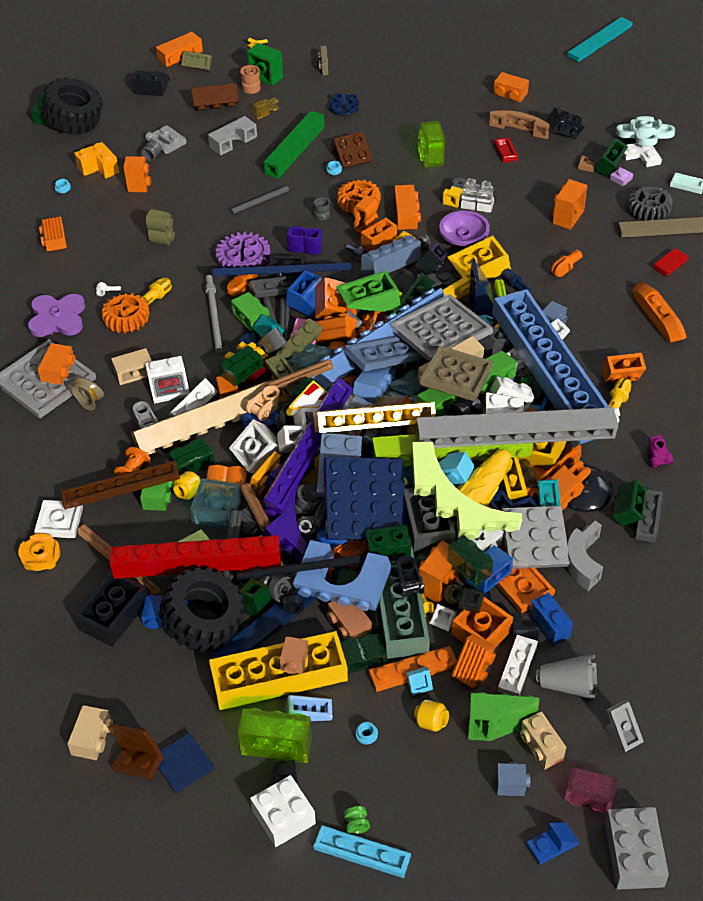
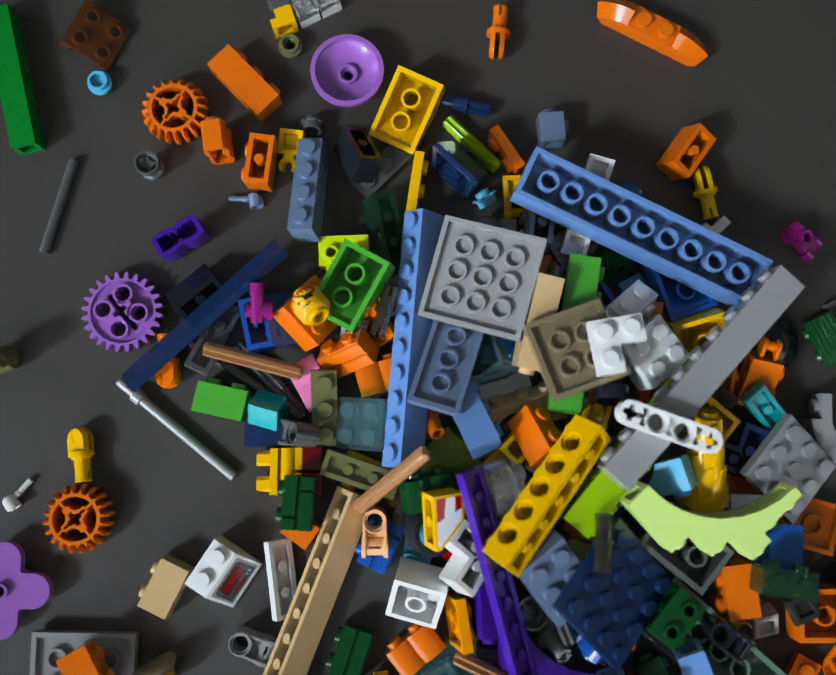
camera: 45 degrees left, 35 degrees up
(284, 300) = (252, 360): none -> medium nougat axle
(313, 274) = (259, 308): none -> magenta plate
(338, 280) = (310, 305): none -> yellow head
(375, 316) = (384, 310): none -> clear smoke pin
(381, 453) = (603, 543): none -> clear smoke pin
(446, 207) = (288, 39): none -> olive plate
(473, 421) = (668, 426): none -> white beam
(479, 372) = (608, 336): none -> white plate

